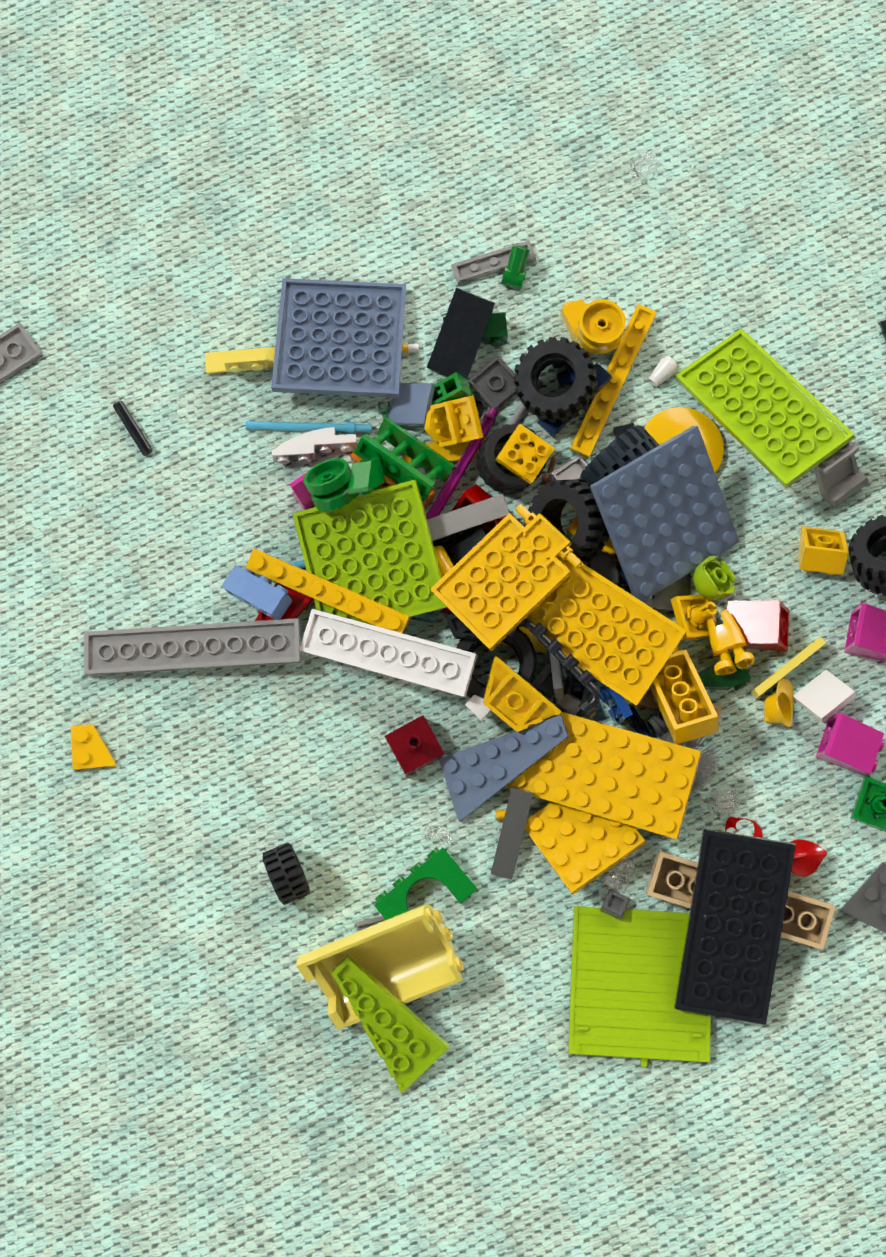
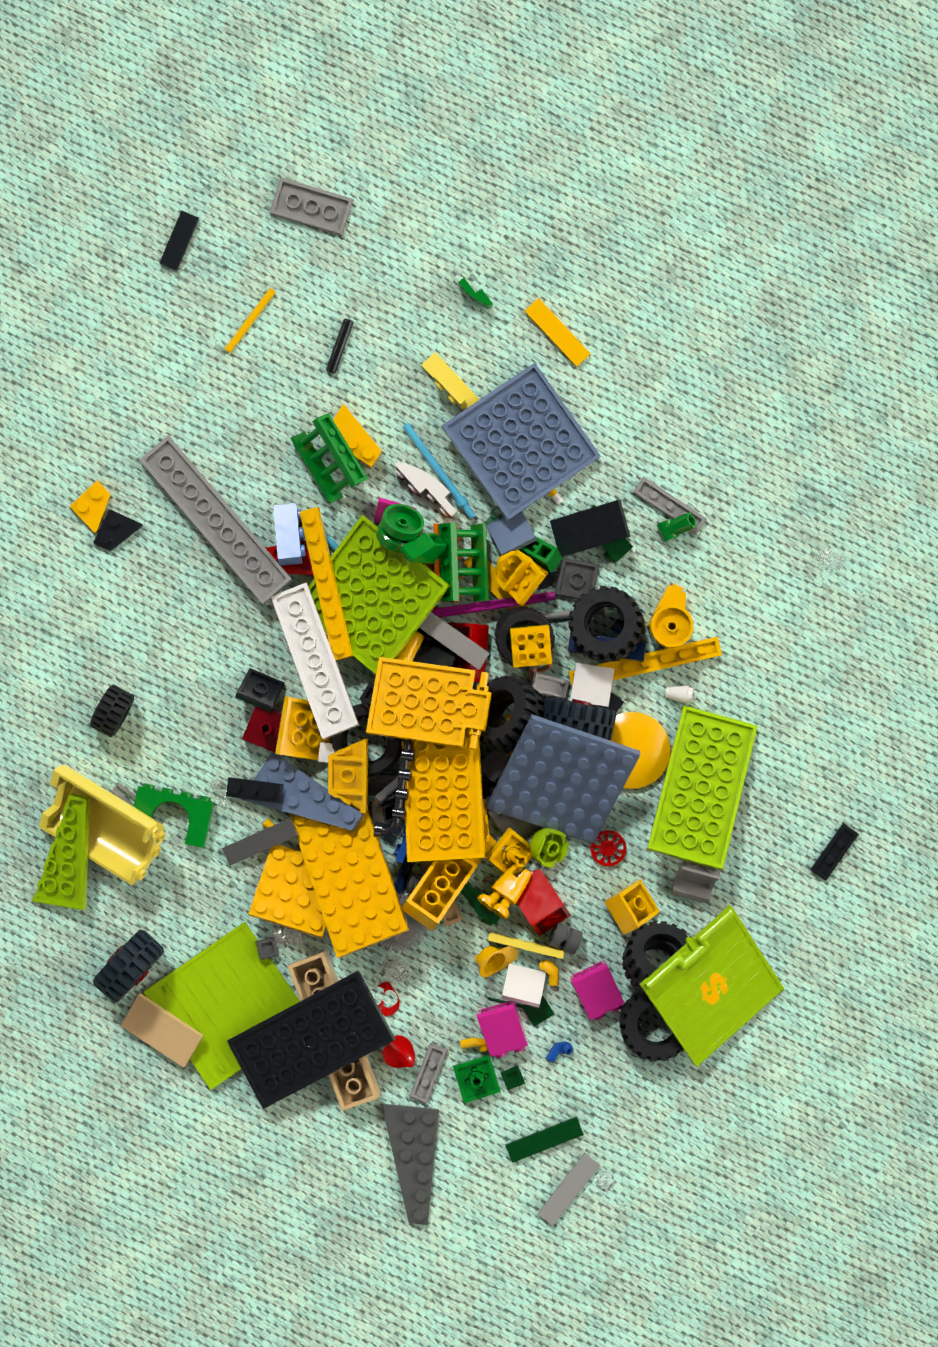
camera: 55 degrees right, 10 degrees up
(46, 486) = (249, 321): none -> yellow bar
(128, 745) = (115, 530): none -> black wing
(190, 282) = (479, 297): none -> green slope
(219, 487) = (341, 453): none -> green fence
(220, 475) = (357, 438): none -> yellow wedge
(272, 243) = (557, 332): none -> yellow tile
(374, 725) = (259, 690): none -> black tile
(440, 715) = (298, 730): none -> yellow plate
(461, 800) = (254, 790): none -> black plate
(535, 1045) = (128, 966): none -> black wheel
(595, 432) = (592, 684): none -> white tile
(618, 1064) = (162, 1030): none -> tan tile
(754, 532) = (608, 848): none -> red wheel
(809, 626) = (565, 938): none -> dark grey wheel
(827, 663) = (552, 970): none -> yellow arm
(841, 845) = (428, 1073): none -> light grey tile
(843, 781) = (474, 1042): none -> yellow arm
(855, 708) = (535, 1014): none -> dark green piece

